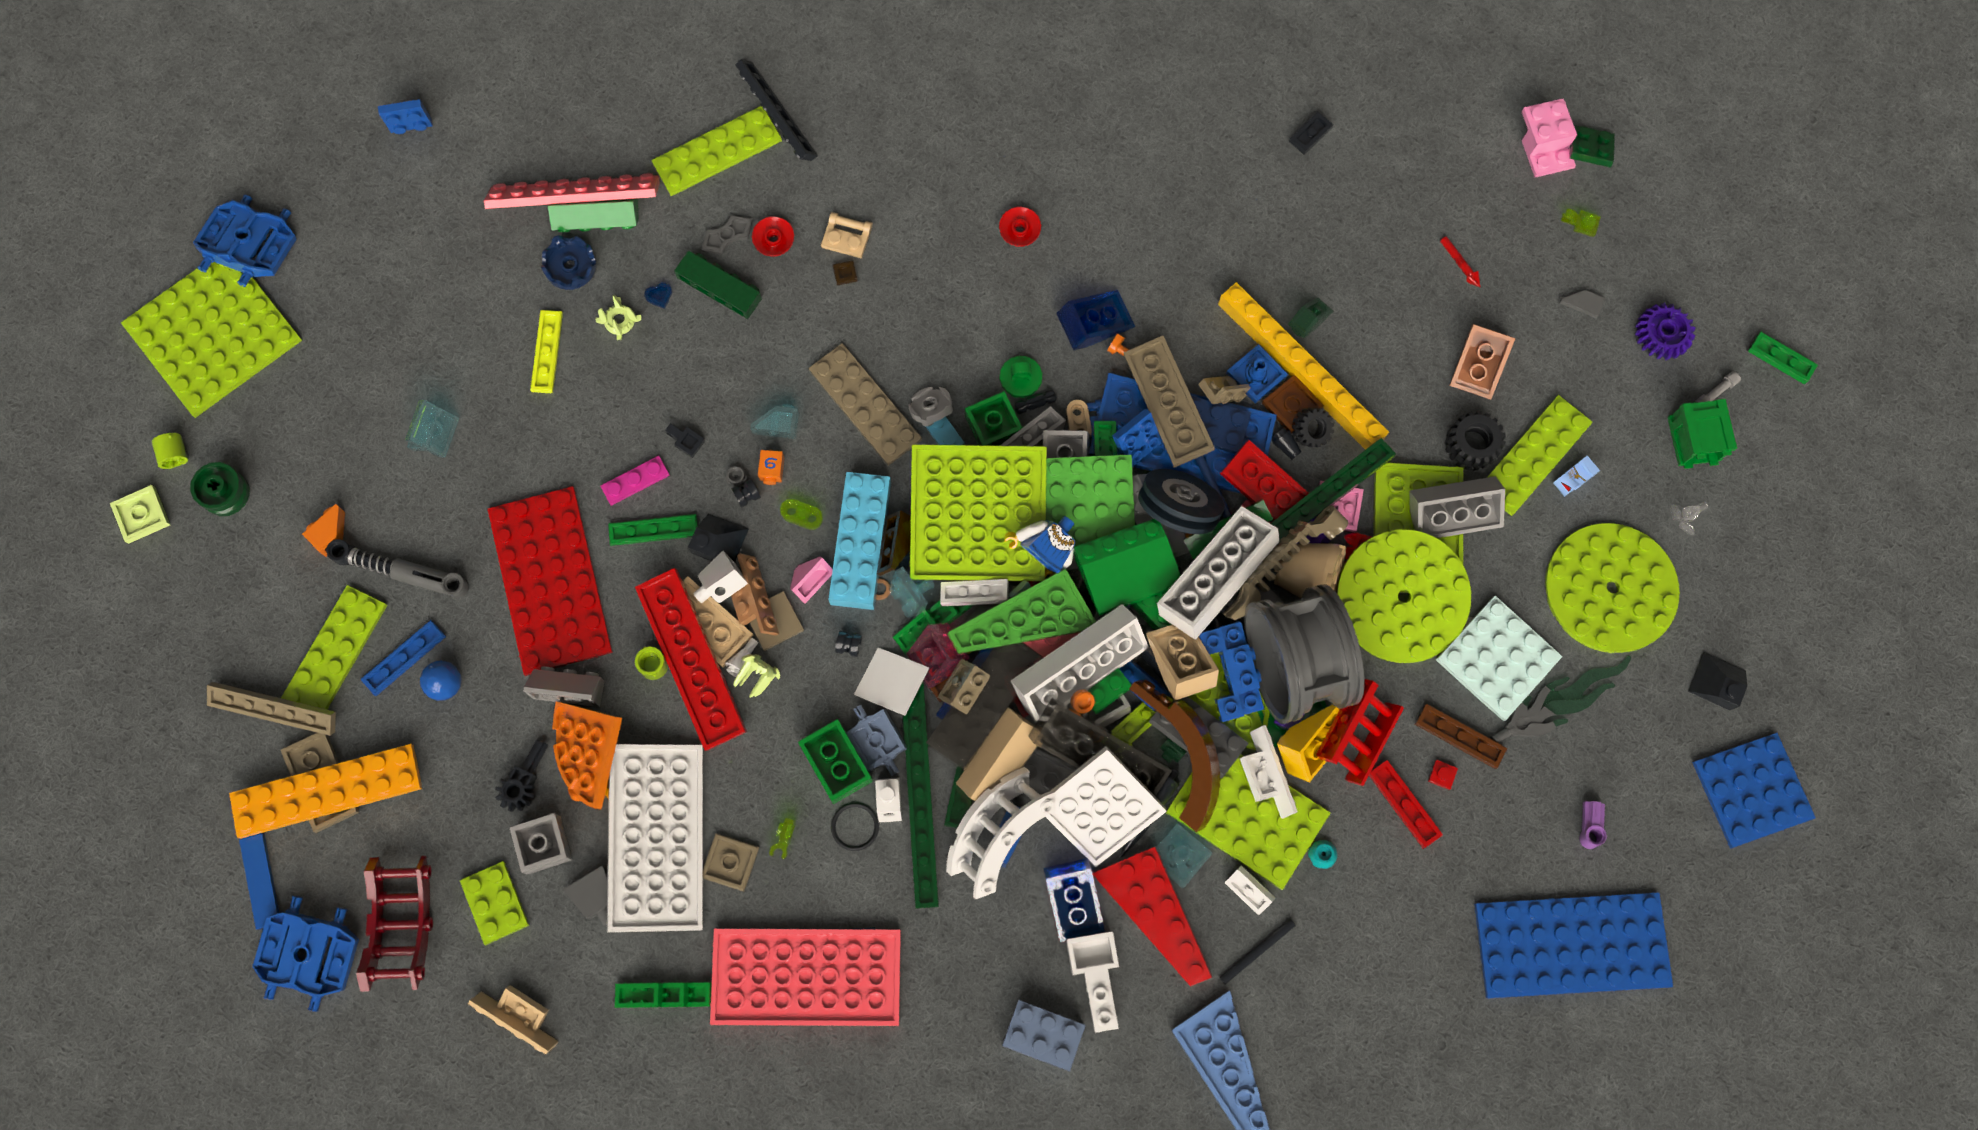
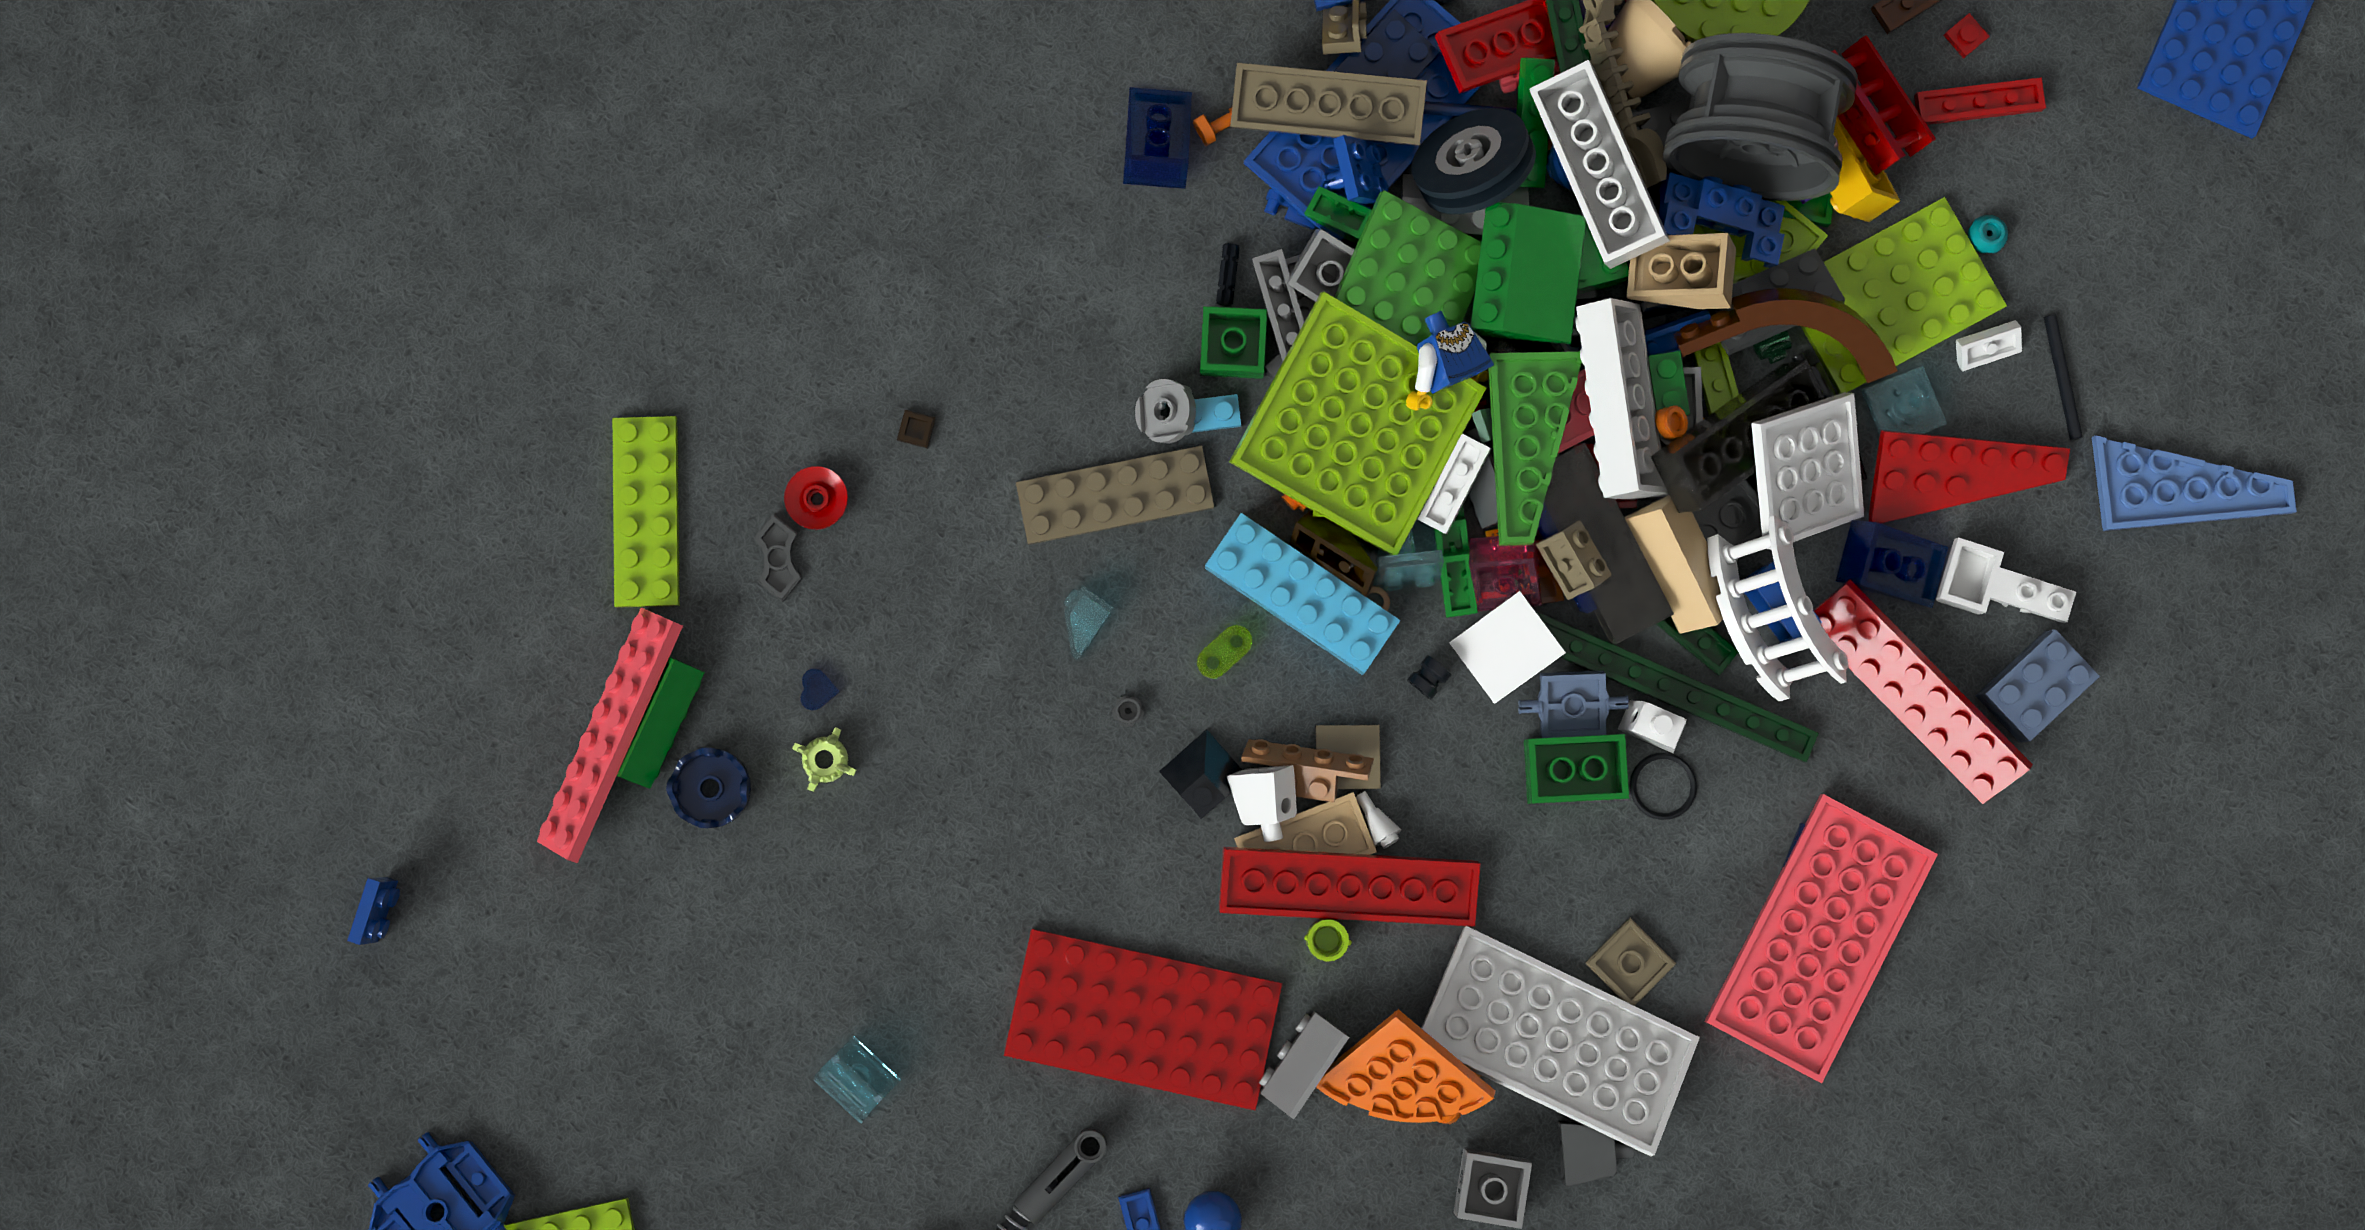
camera: 60 degrees left, 10 degrees up
(521, 778) = (1393, 1173): black gear -> none
(546, 351) = (819, 876): neon yellow tile -> none
(634, 480) = (1064, 845): dark pink plate -> none
(652, 529) = (1144, 853): green tile -> none
(663, 995) = (1754, 1123): green slope -> none
(687, 441) = (1047, 751): black plate -> none
(718, 284) = (846, 604): dark green brick -> none
(746, 492) = (1159, 708): black wheel -> none
(753, 663) = (1409, 800): yellowish green piece -> none
(771, 466) = (1141, 659): orange brick -> none
(772, 105) = (623, 403): black plate -> none
(785, 832) = (1630, 875): clear neon green plate -> none
(809, 578) = (1314, 684): bright pink slope -> none
(844, 241) = (870, 407): tan plate -> none
(997, 957) = (1920, 694): none -> plate
(1020, 376) = (1183, 275): green tile -> none
(1022, 218) = (971, 151): red dish -> none
(1079, 422) = (1285, 232): tan plate -> none
(1266, 774) = (1865, 247): white bracket -> none

